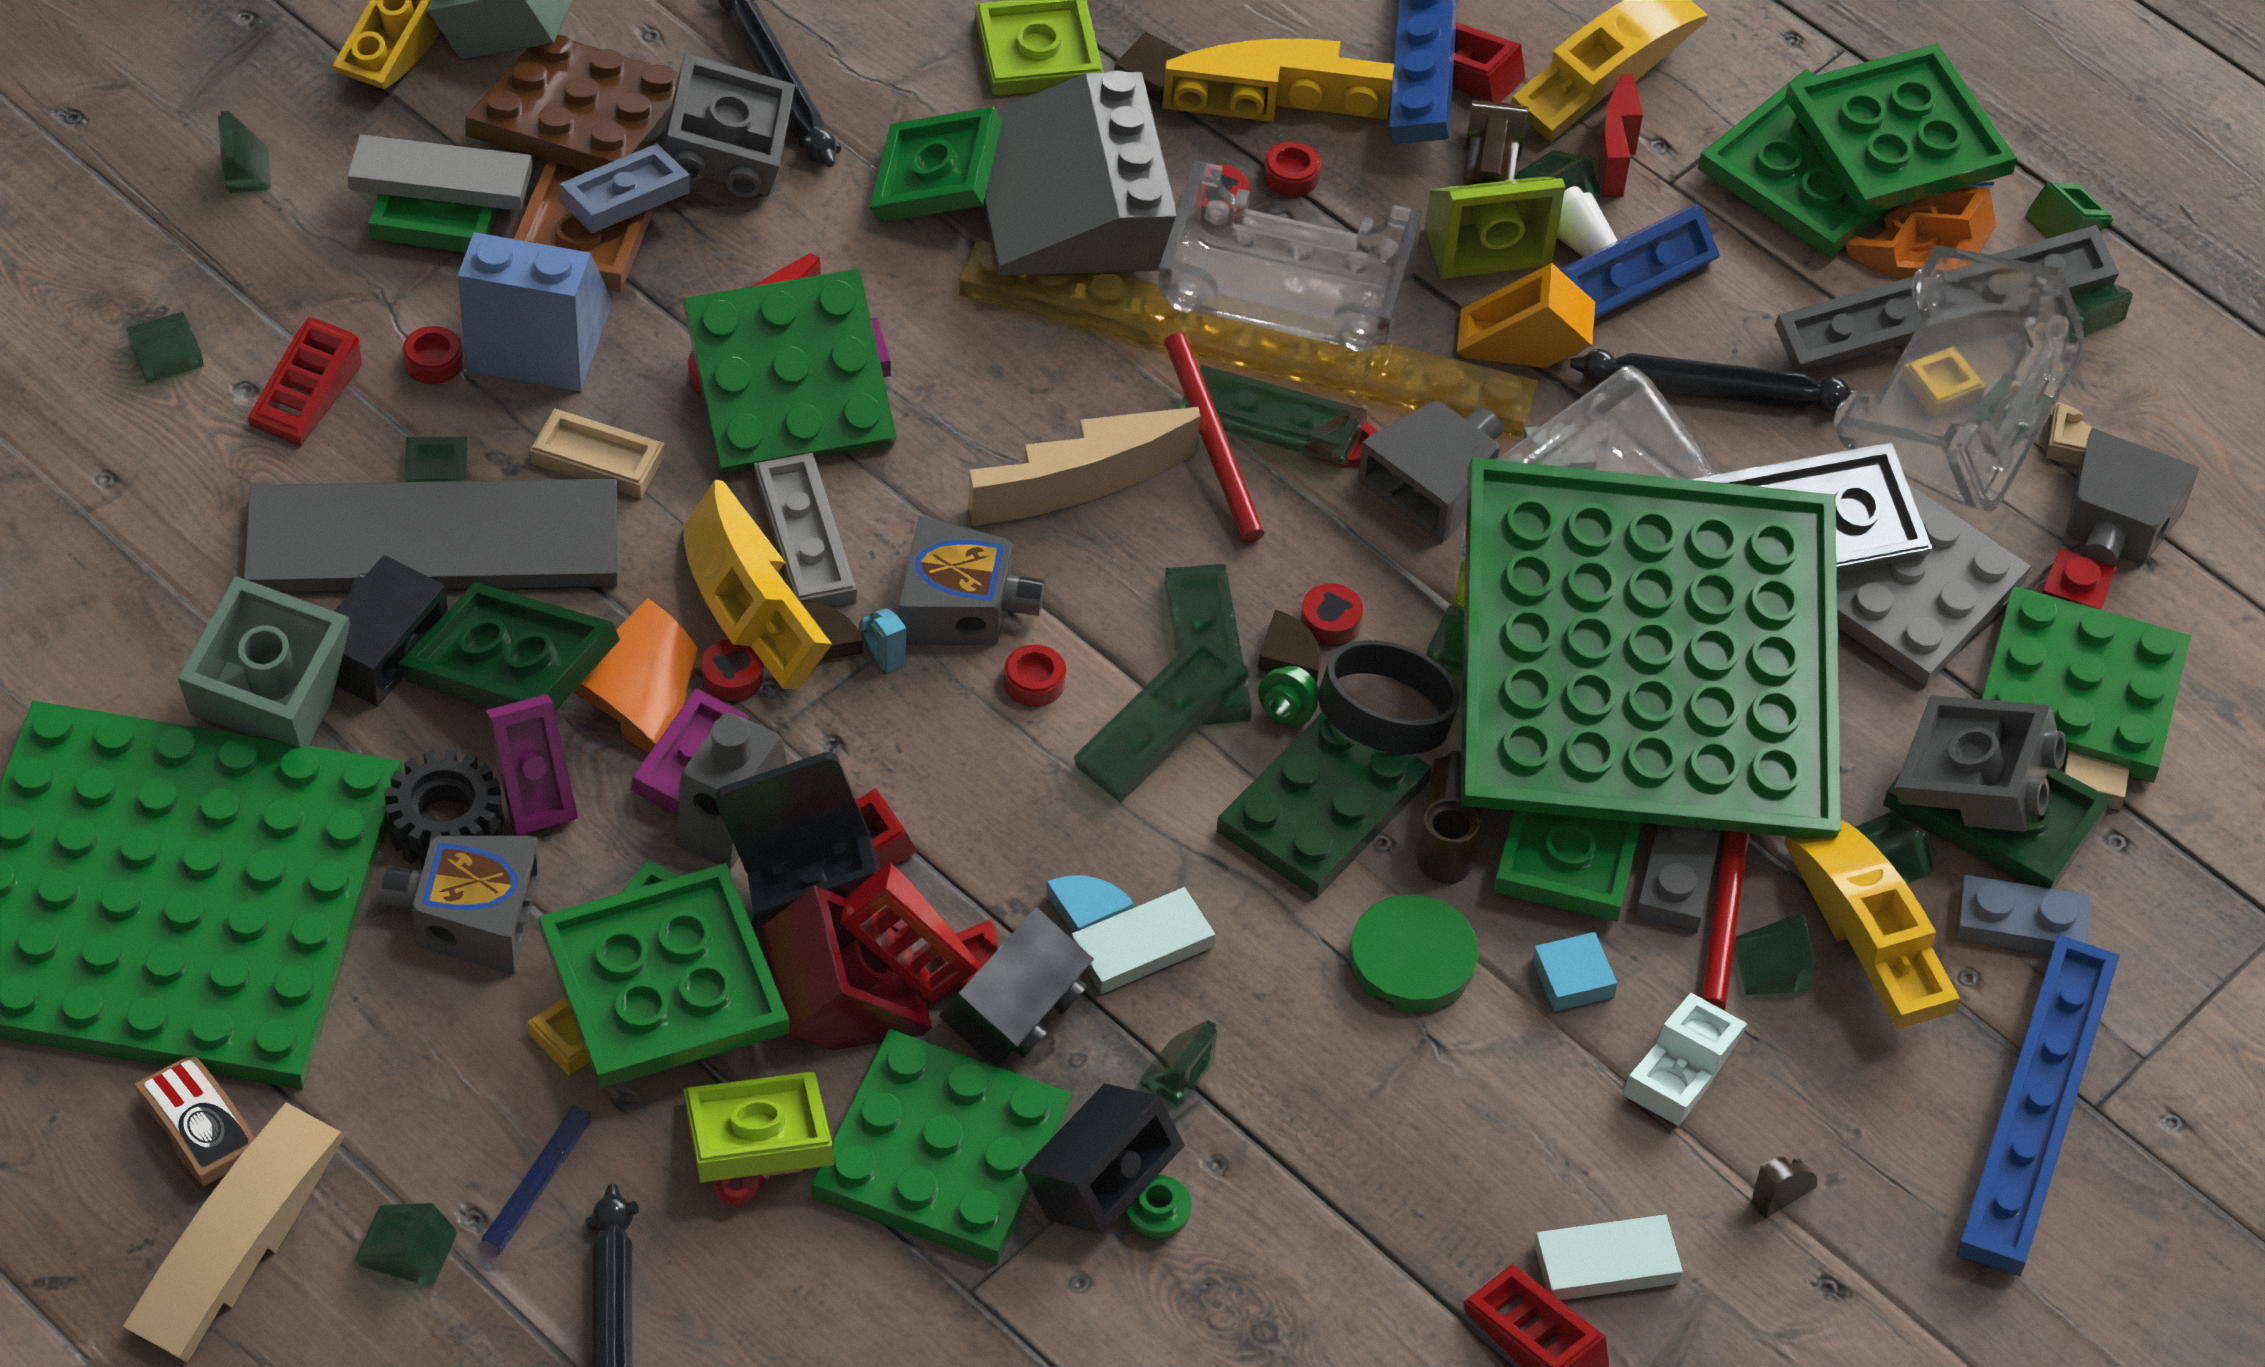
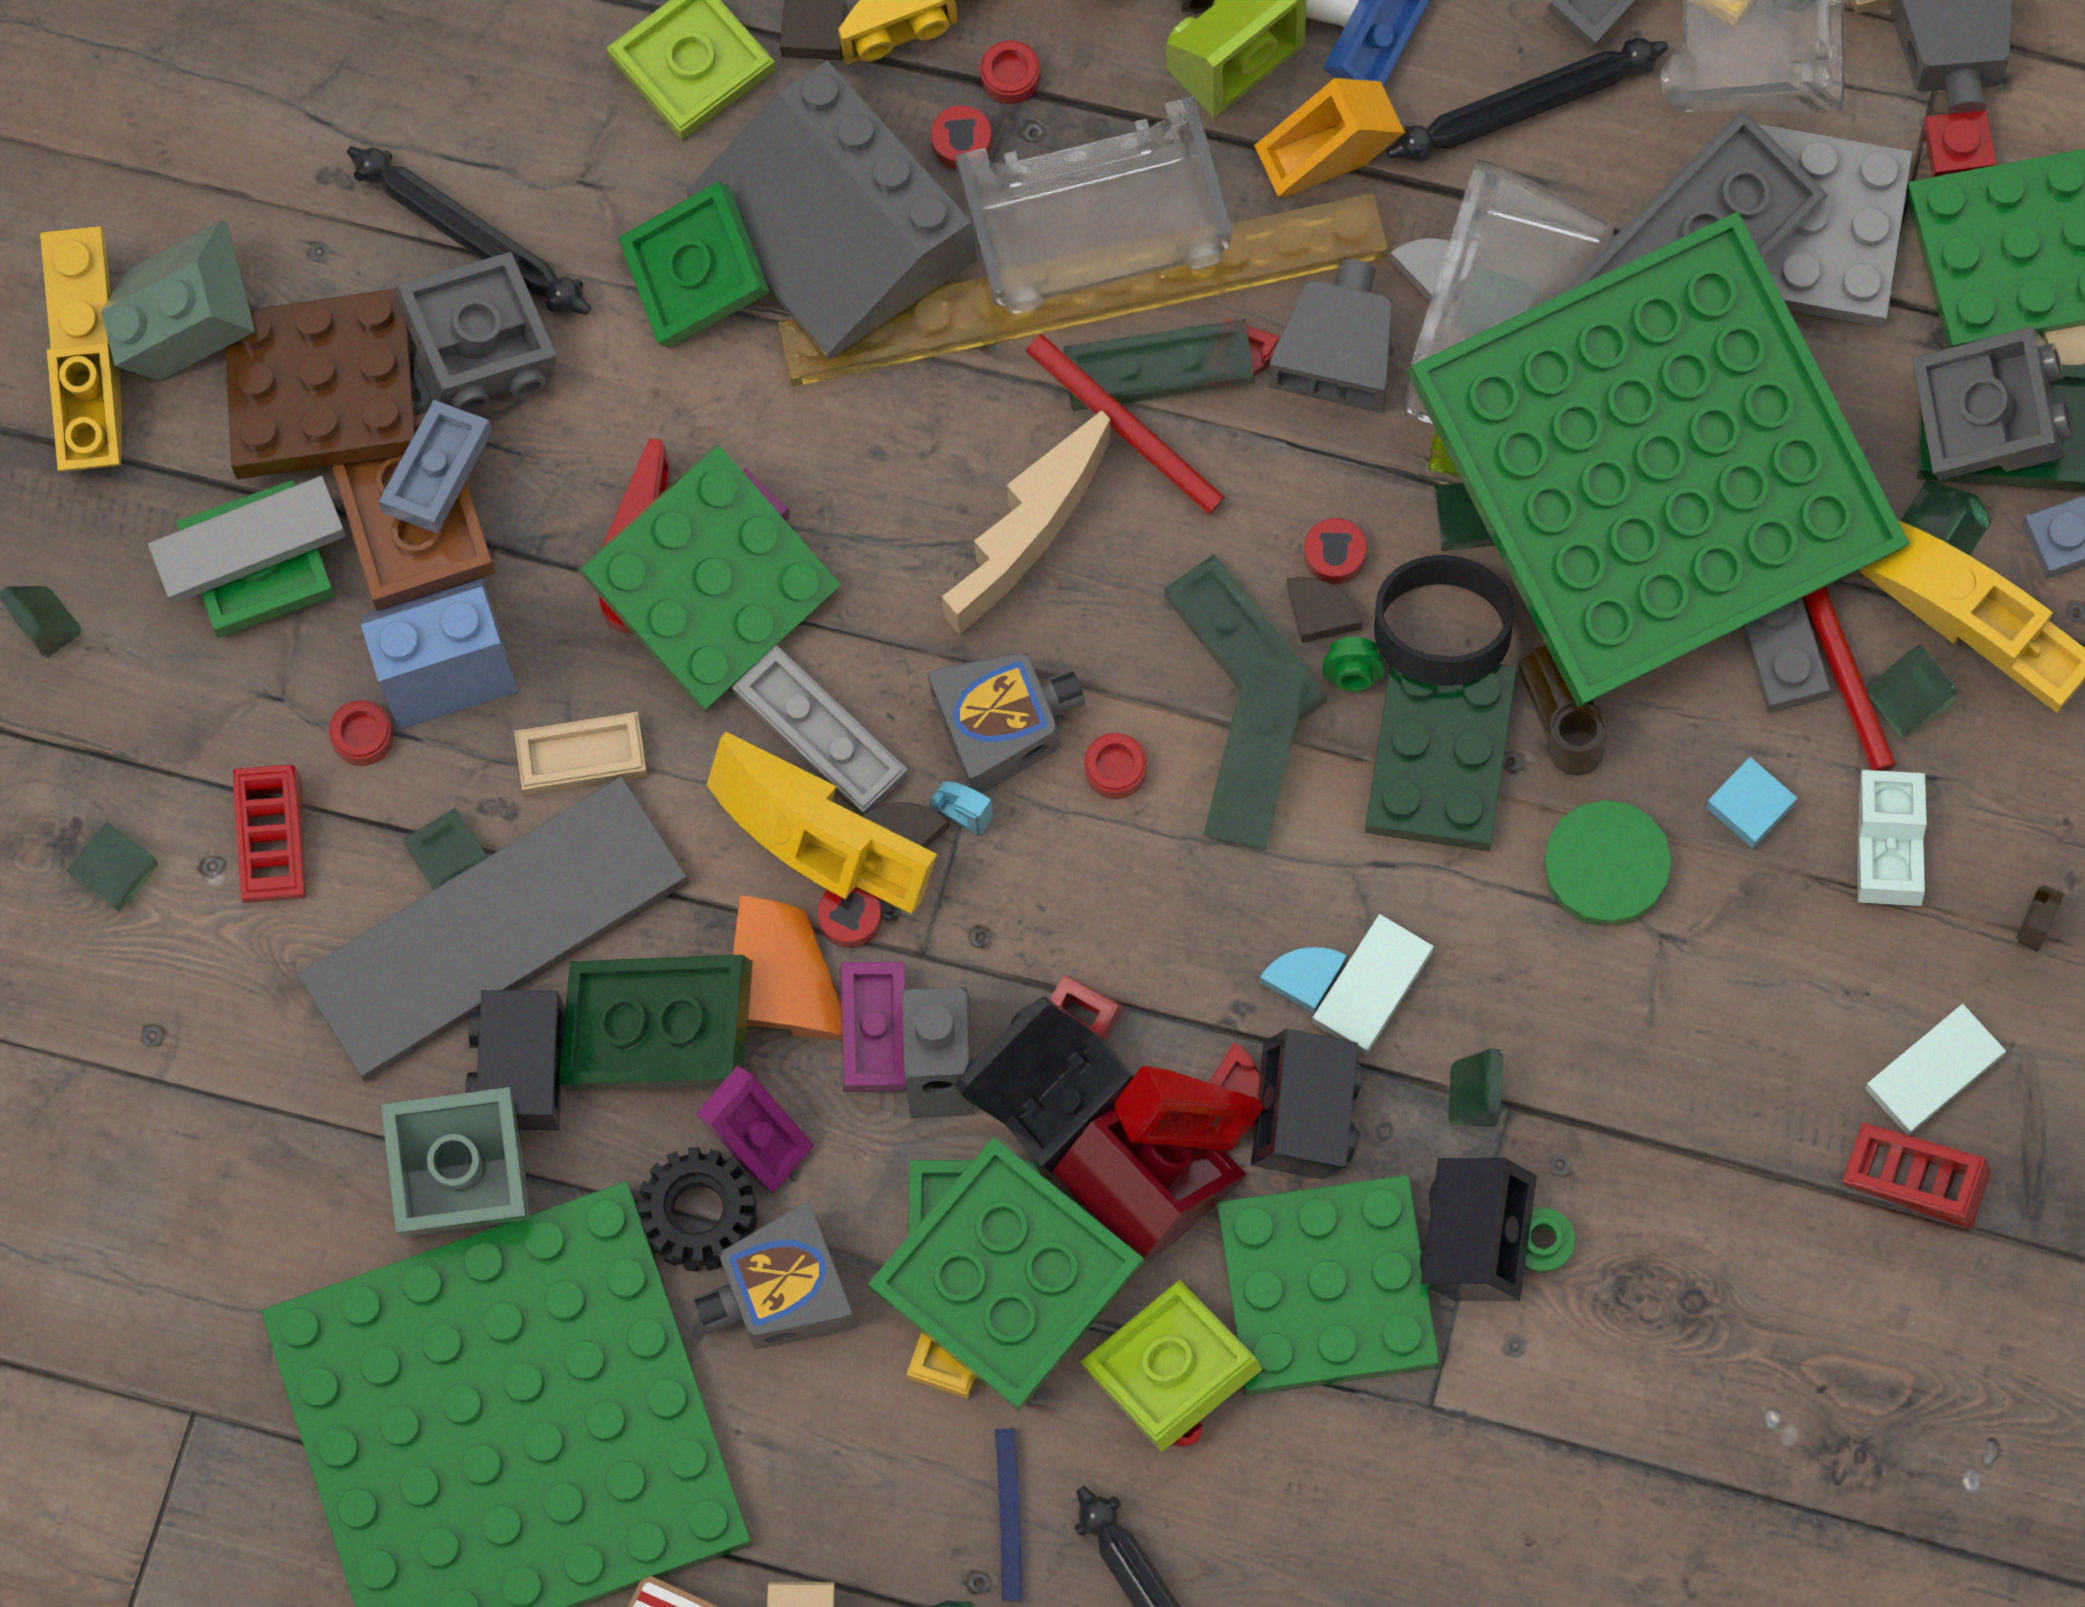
camera: 20 degrees left, 20 degrees up
(1568, 862) = (1690, 702): green plate -> none

